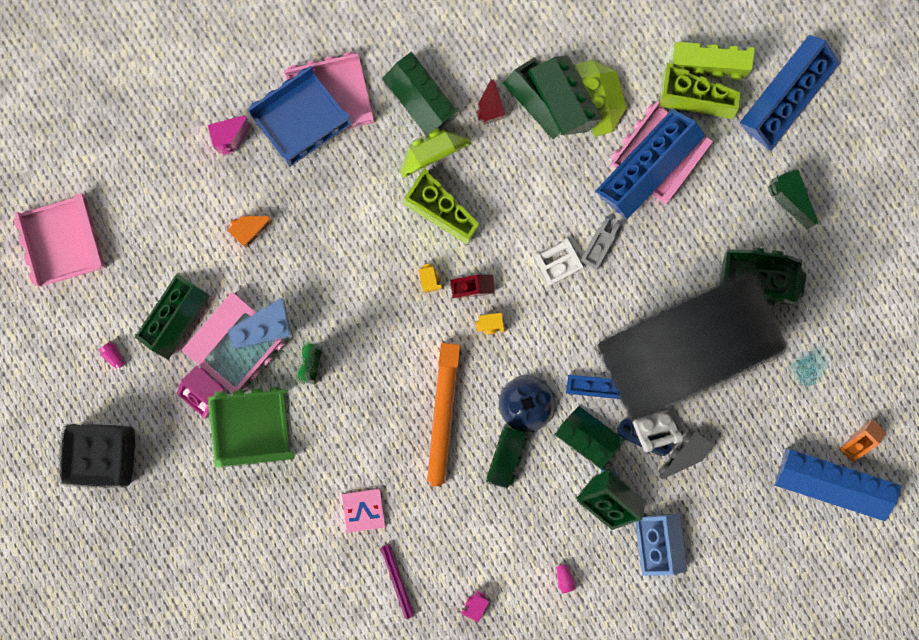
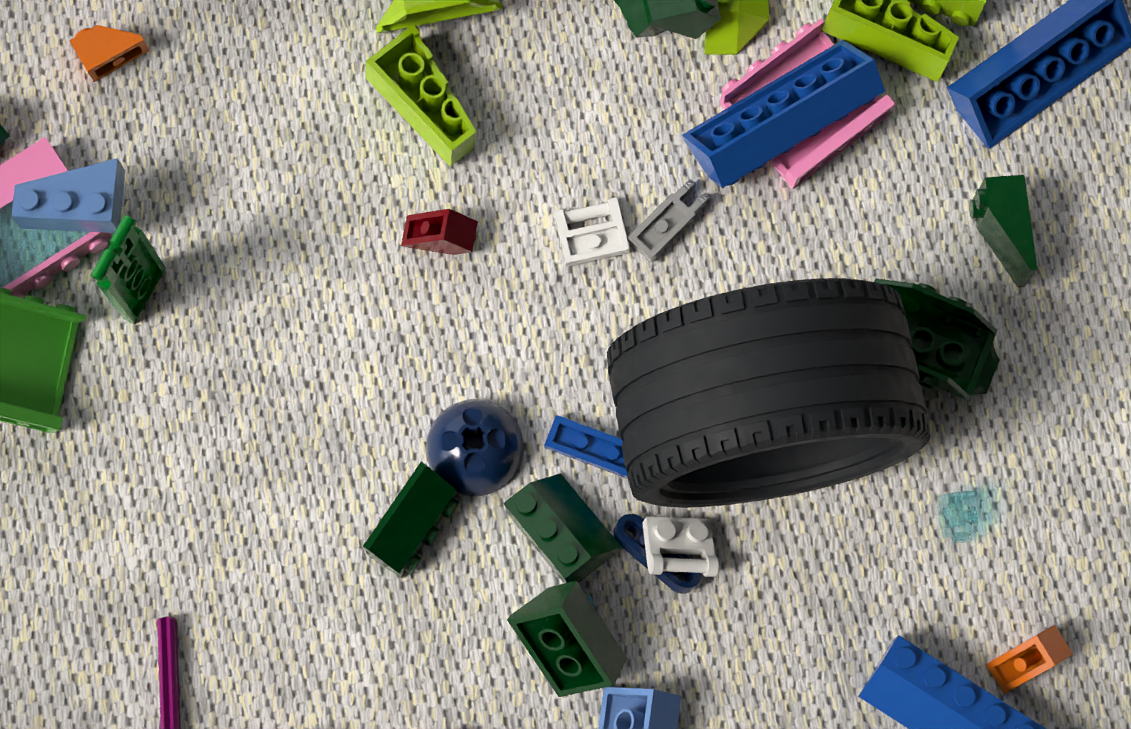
camera: 15 degrees right, 10 degrees down
(363, 510) = (149, 550): bright pink tile -> none
(429, 278) = (371, 203): yellow brick -> none
(443, 414) = (361, 348): orange brick -> none
(490, 323) = (450, 299): yellow brick -> none
(690, 453) = (726, 601): dark grey slope -> none

